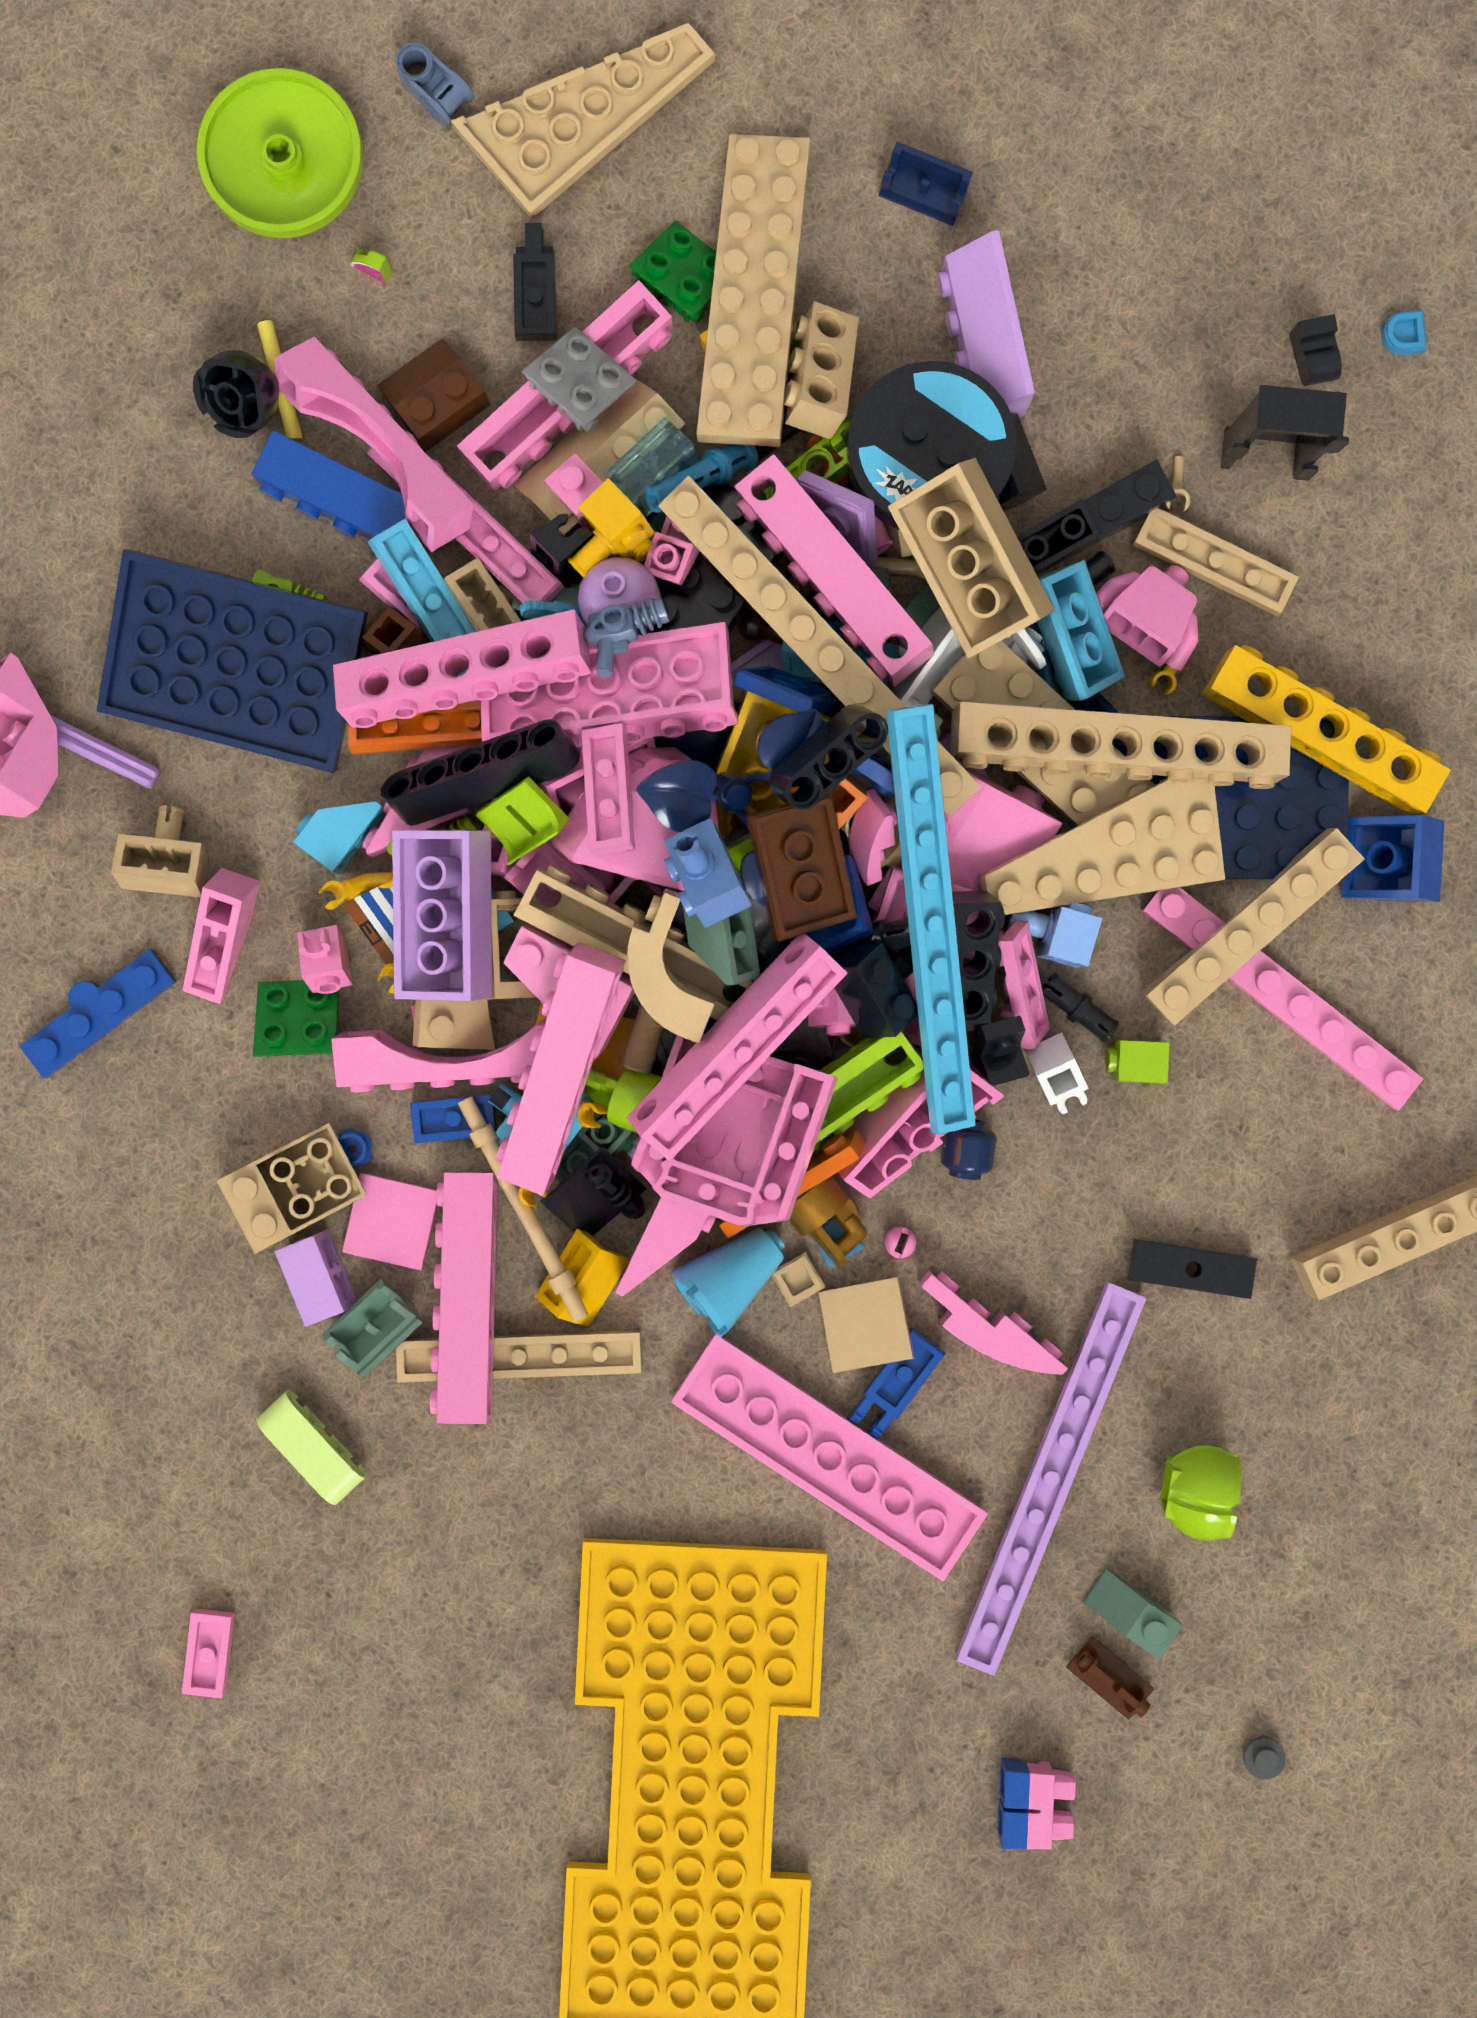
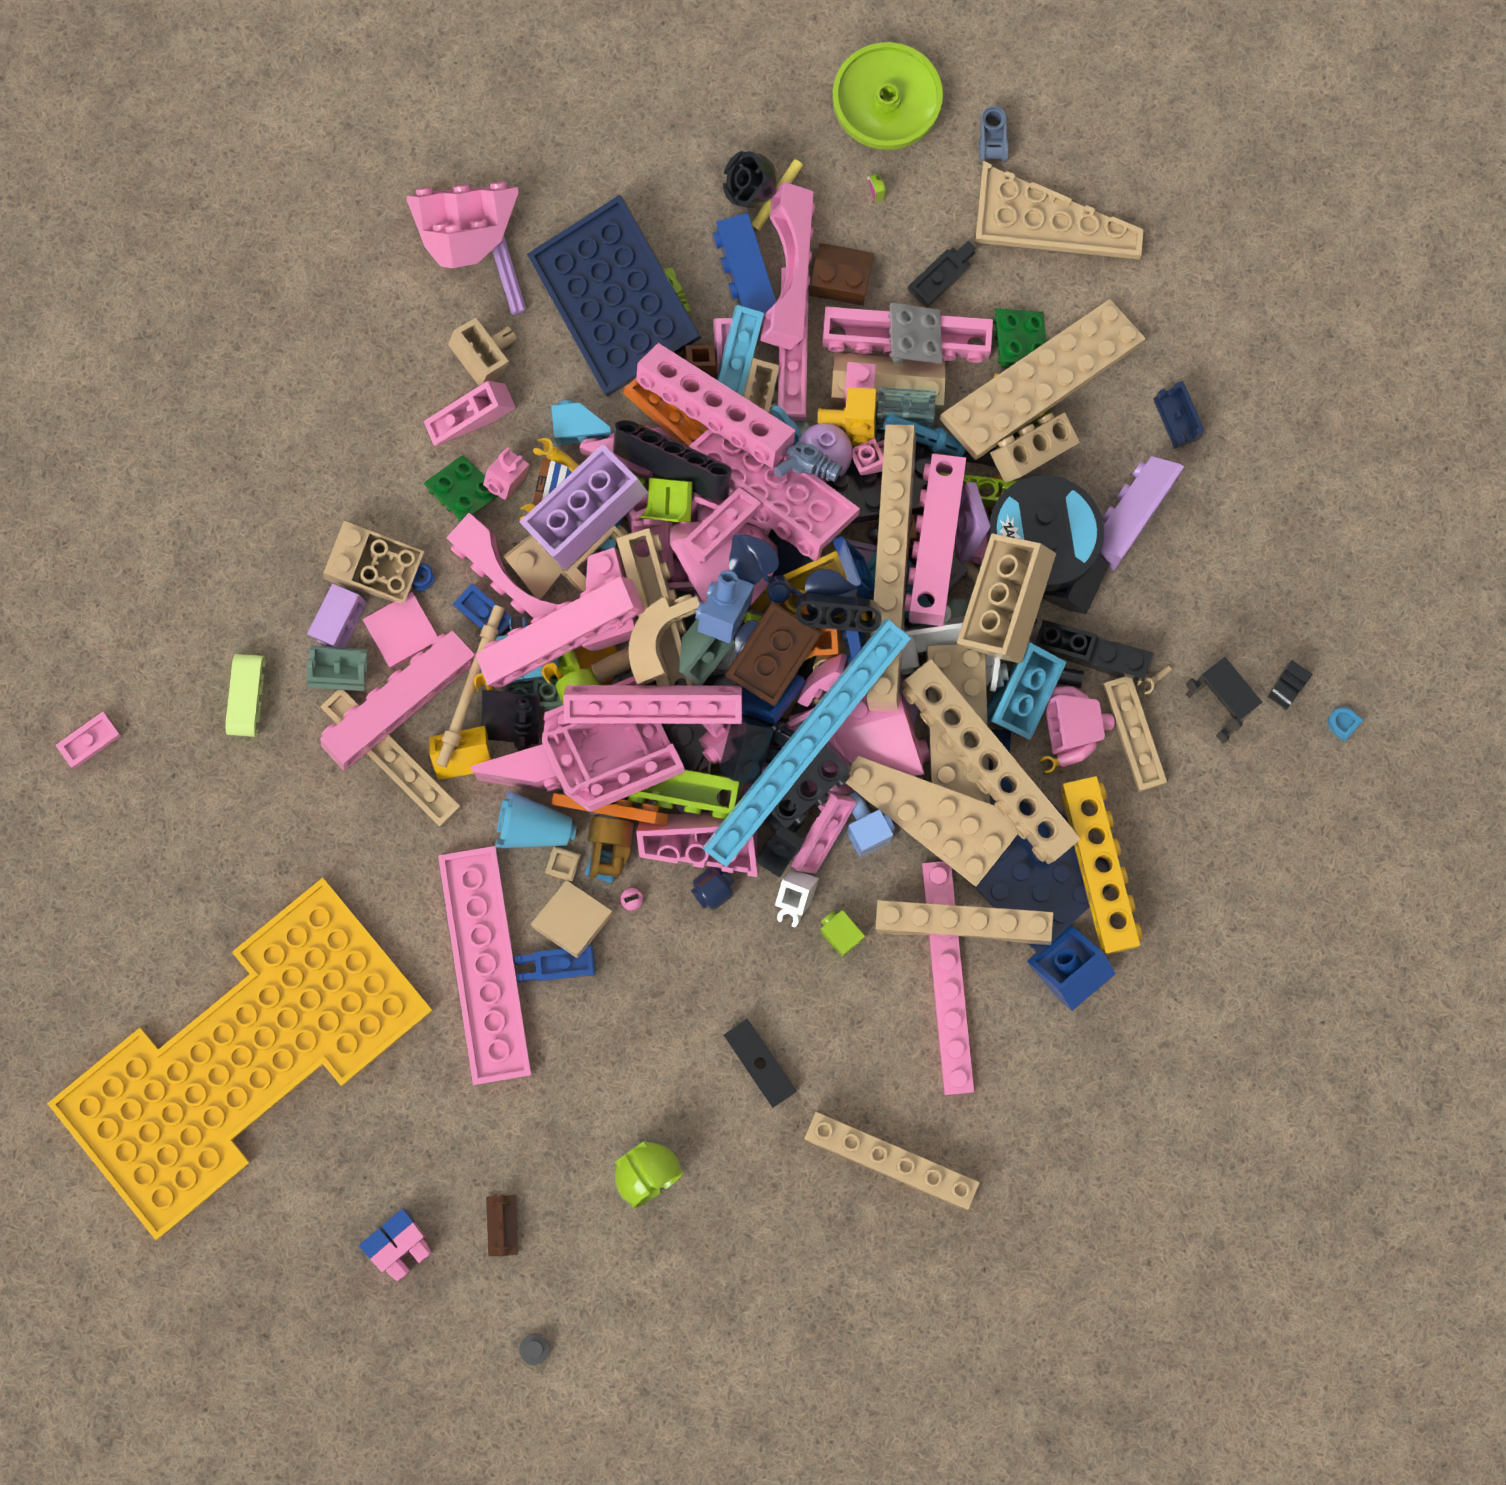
camera: 50 degrees right, 10 degrees down
(97, 1012) = (373, 389): blue hinge -> none
(554, 550) = (818, 397): black hinge -> none
(1001, 1338) = (630, 997): bright pink slope -> none
(1050, 1478) = (579, 1092): lavender plate -> none
(1079, 1007) = (840, 877): black pin -> none
(1133, 1613) = (548, 1201): sand green slope -> none

